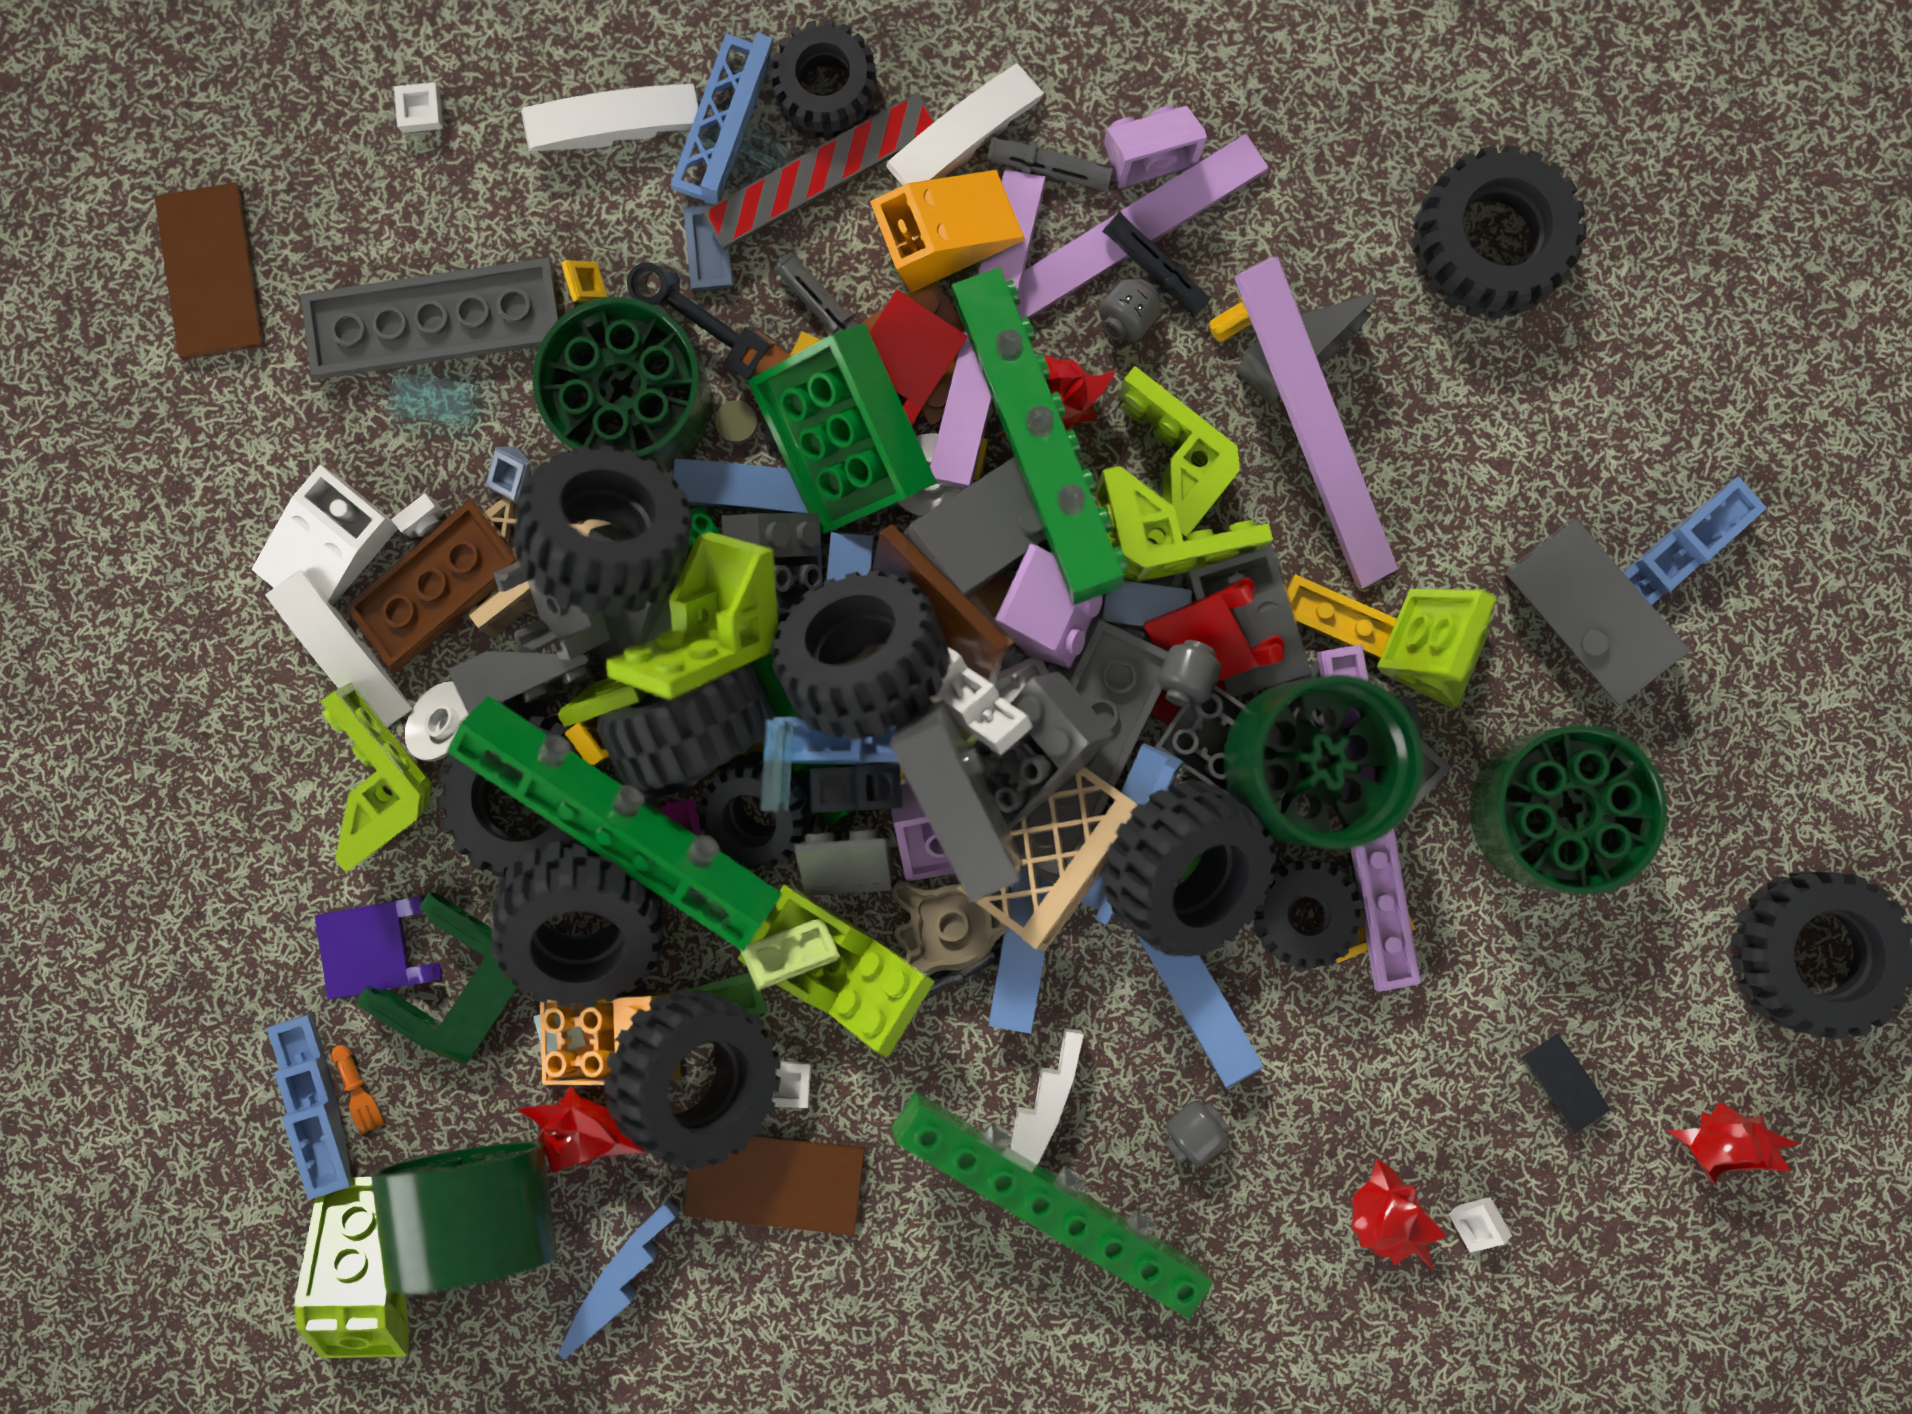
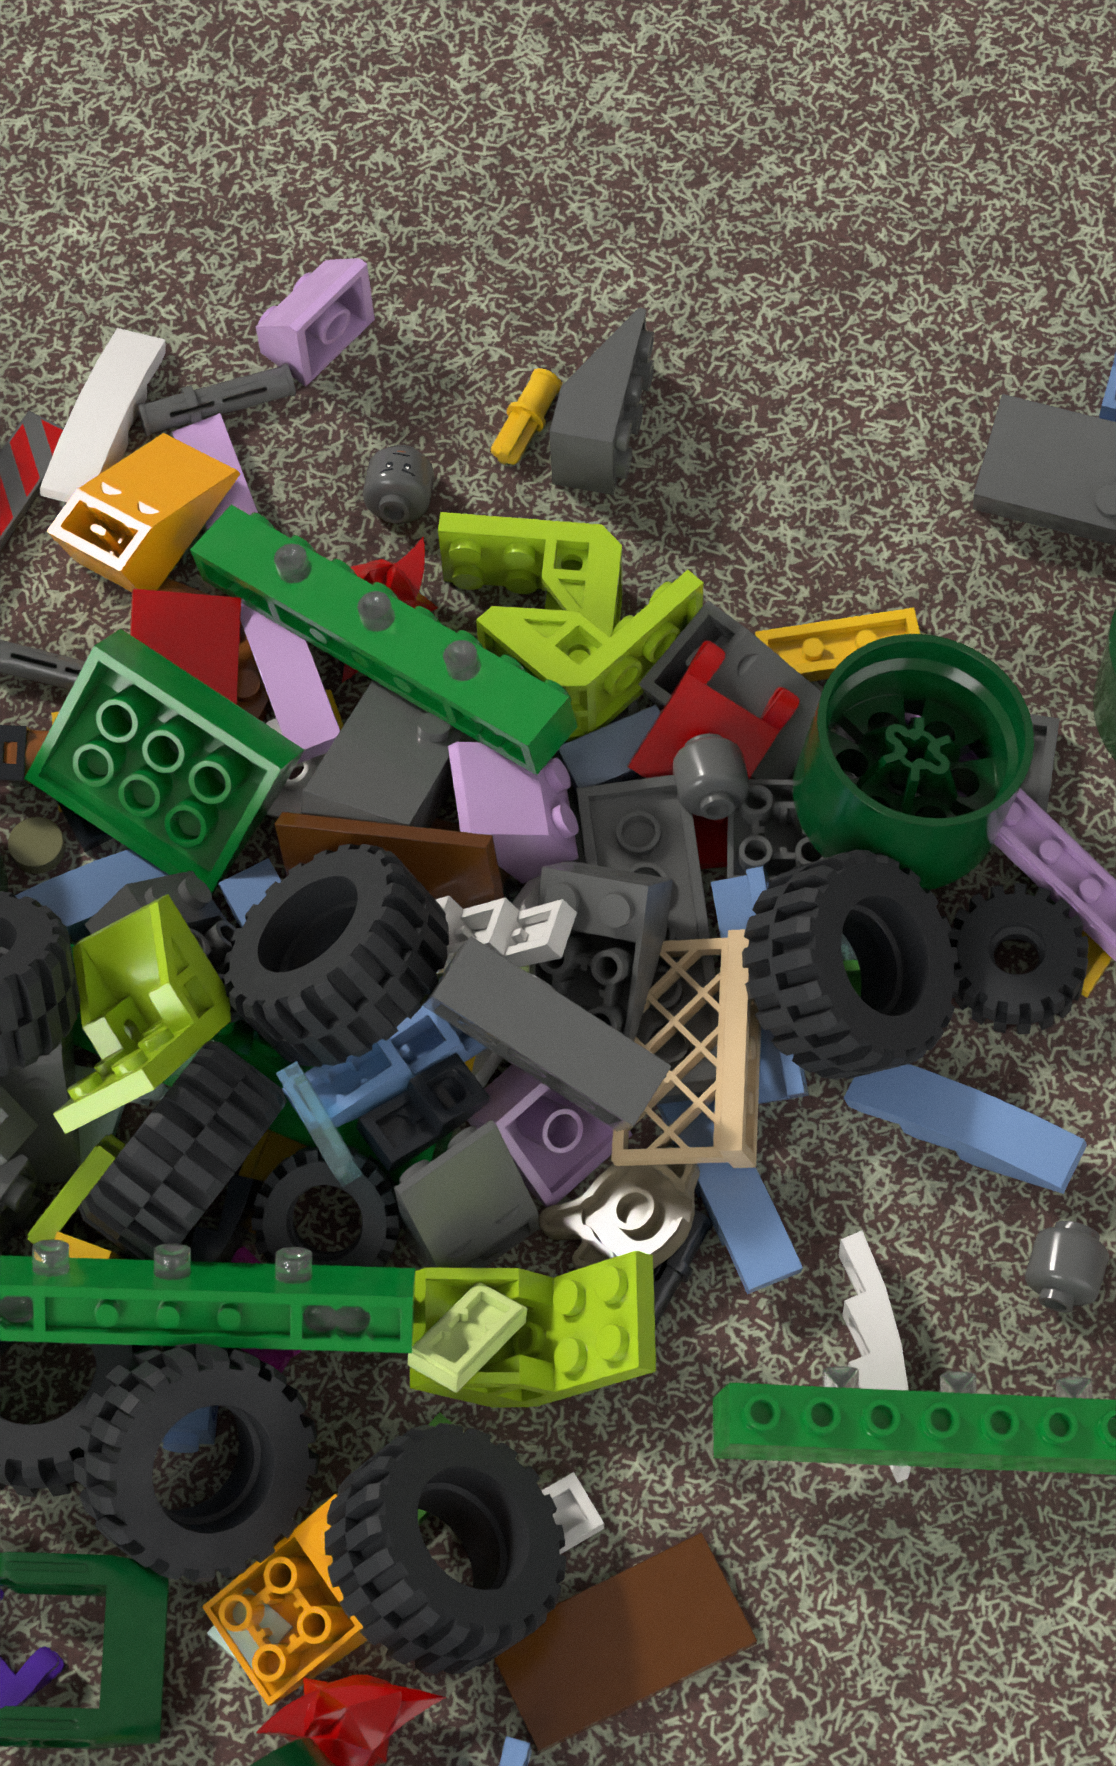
camera: 30 degrees left, 20 degrees down
(1152, 215) = (355, 399): lavender tile -> none
(1154, 262) = (396, 425): black pin -> none
(1315, 421) = (672, 460): lavender tile -> none
(1438, 641) = (948, 582): lime bracket -> none
(1529, 189) = (730, 142): black tyre -> none

